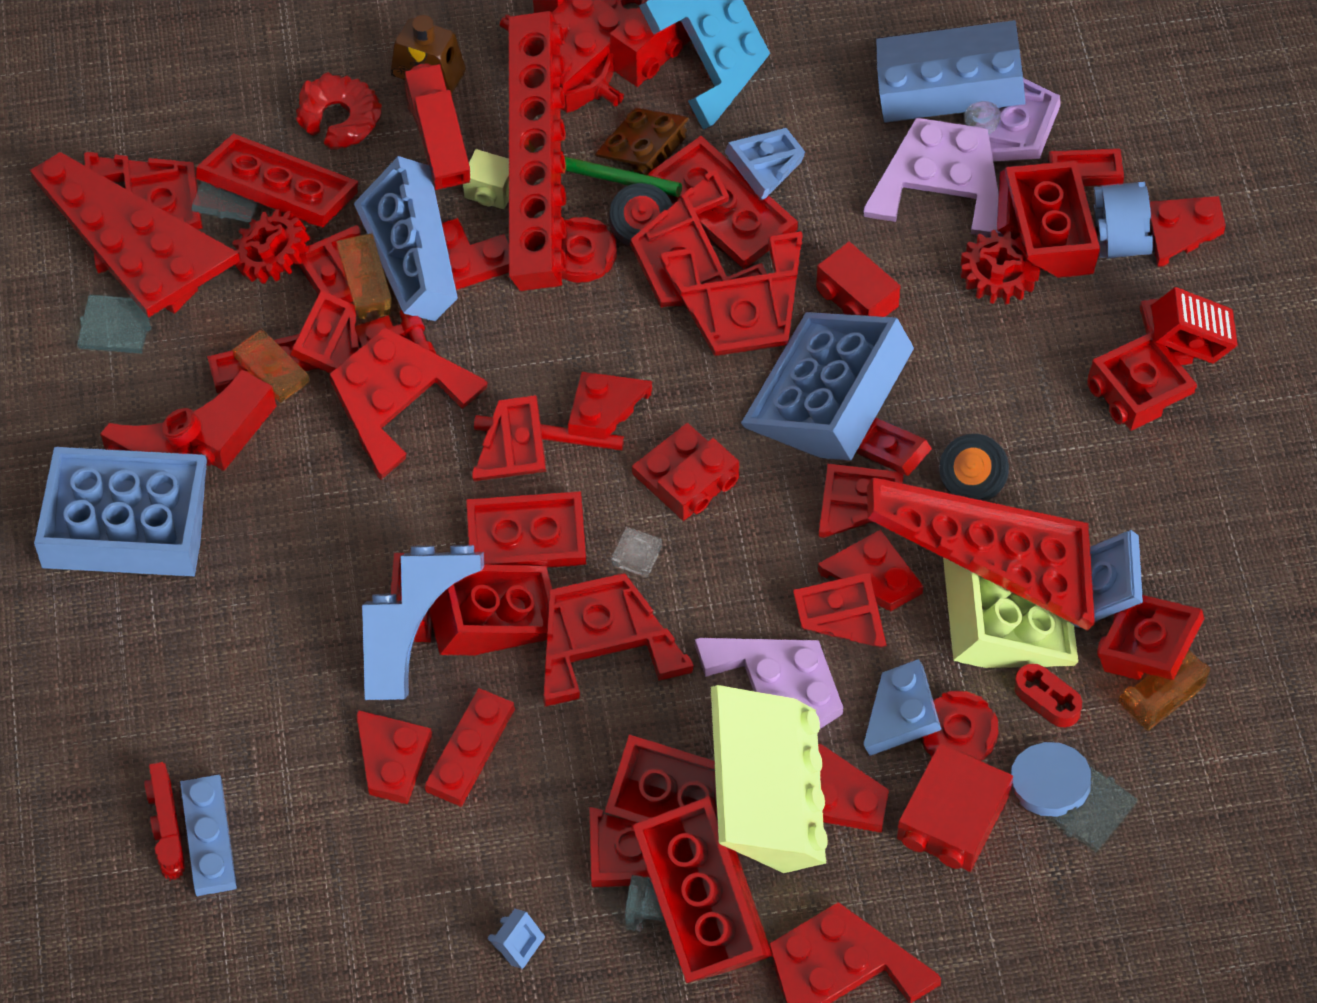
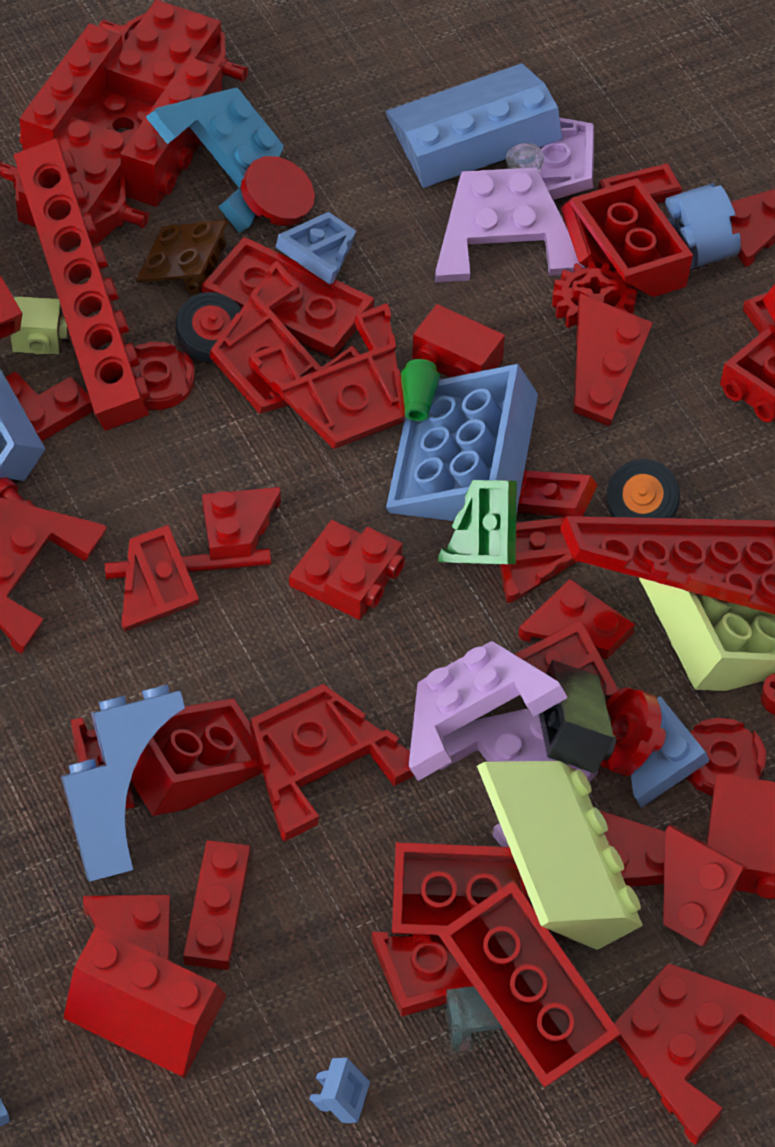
camera: 20 degrees left, 5 degrees down
(373, 816) = (141, 1001): none -> red slope
(528, 529) = (205, 662): red plate -> none
(620, 176) = (175, 293): green bar -> none
(636, 552) = (324, 661): clear plate -> none
(741, 614) = (467, 691): none -> lavender wing
(747, 97) = (277, 190): none -> red tile
(805, 318) = (419, 388): none -> green cone
(815, 463) = (485, 525): none -> wing
(829, 661) = (579, 726): none -> black brick
(876, 684) = (636, 727): none -> red plate
(884, 839) = (696, 885): none -> red wing
(988, 327) = (605, 357): none -> red wing

